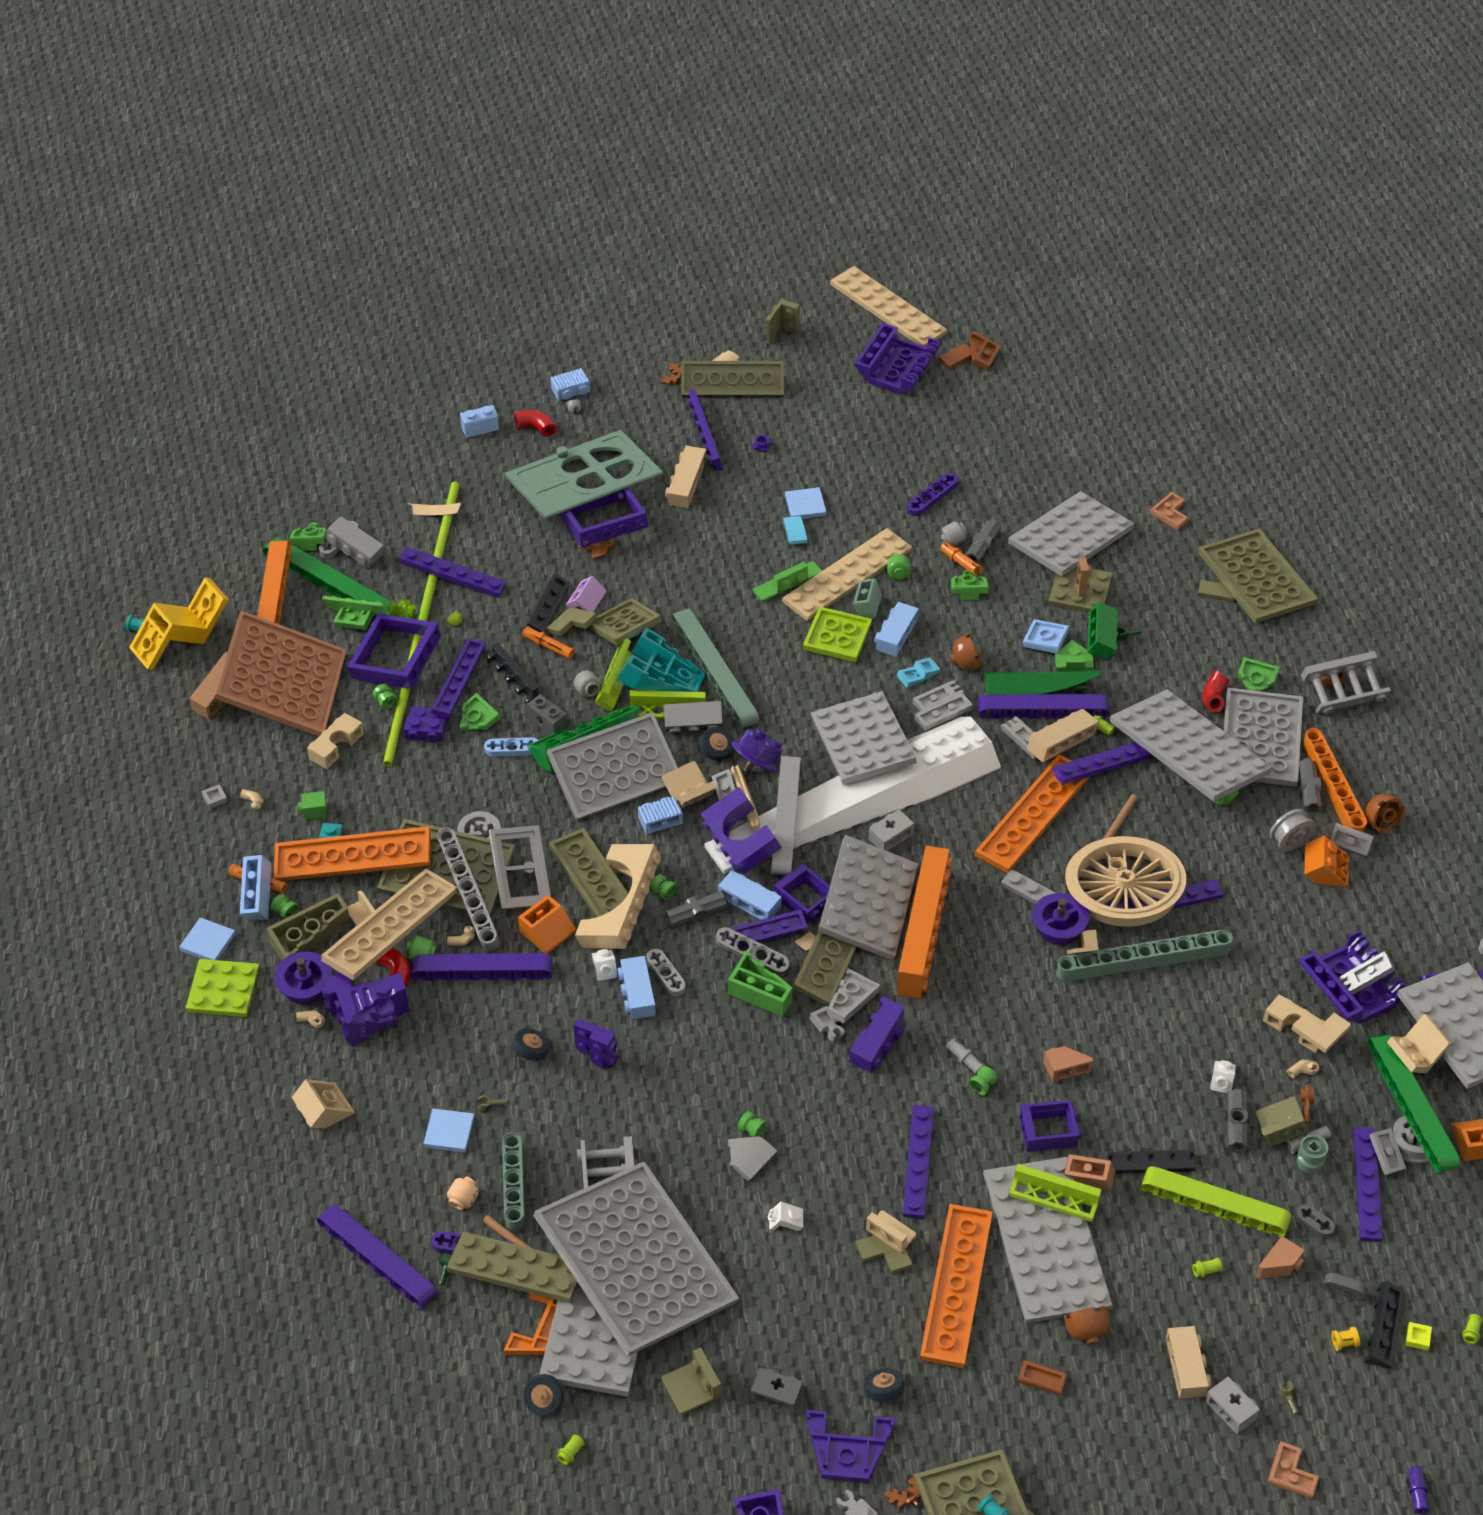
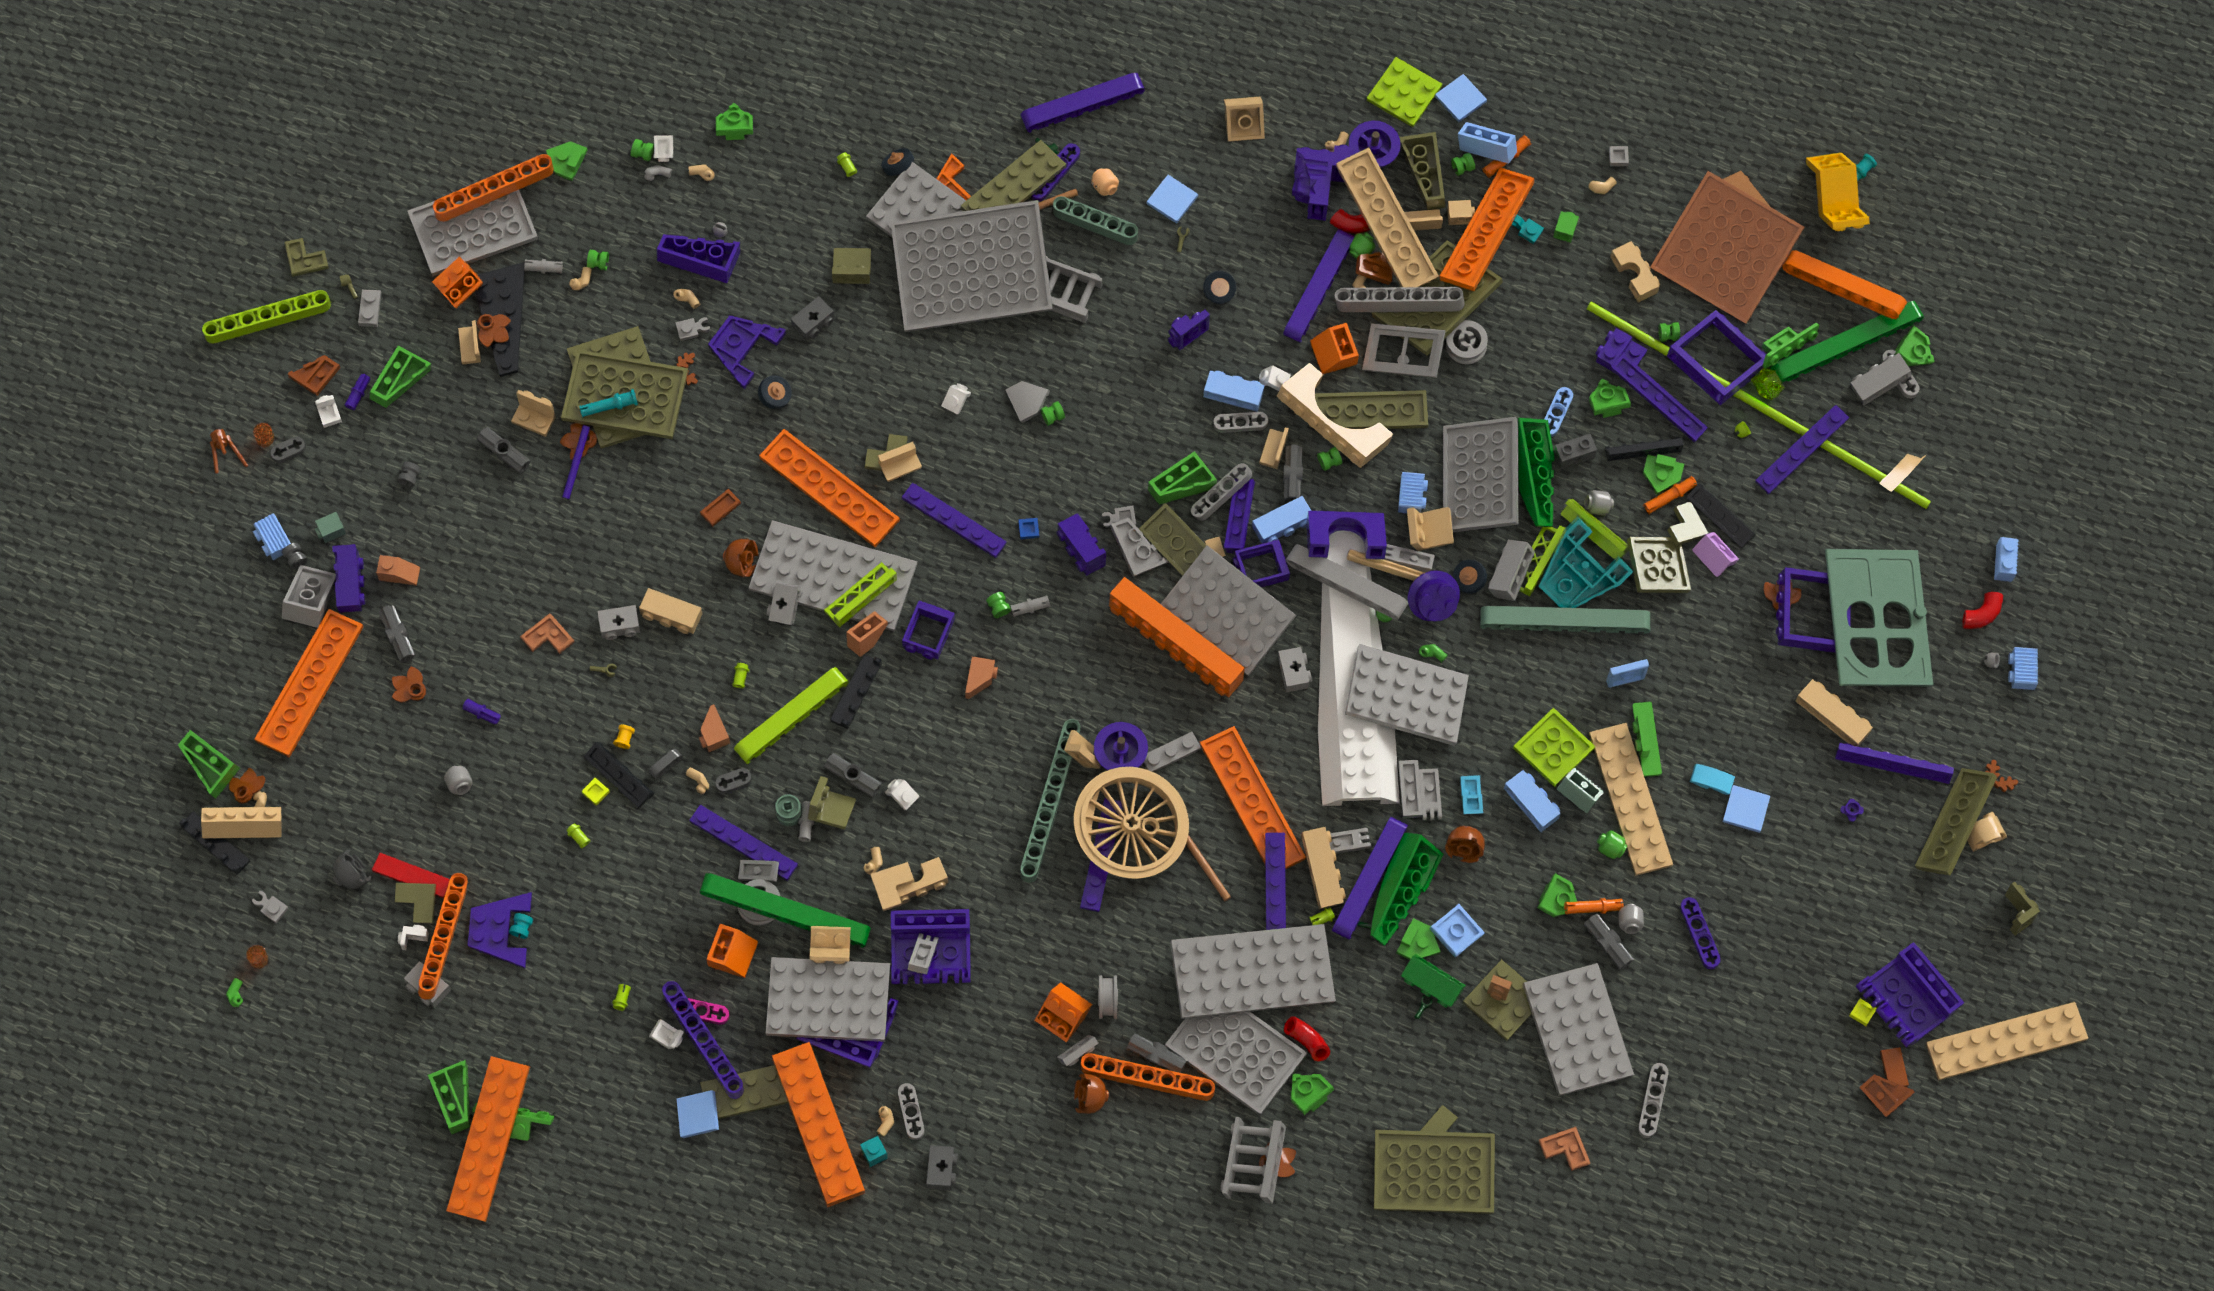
camera: 115 degrees right, 20 degrees up
(342, 885) = (1460, 212): none -> tan brick
(437, 929) = (1374, 267): none -> dark orange wing
(530, 656) = (1662, 472): none -> bright green plate
(677, 932) = (1274, 448): none -> tan panel
(741, 603) = (1627, 673): none -> light blue tile
(803, 745) = (1432, 650): none -> bright green arm
(885, 1094) = (1028, 528): none -> blue tile
(926, 384) = (1862, 1012): none -> neon yellow plate
(1091, 474) = (1653, 1100): none -> light grey beam
(1110, 1257) = (791, 596): none -> light grey brick
(1307, 1097) = (835, 832): dark orange plate -> none
(1335, 1251) = (700, 778): none -> tan arm

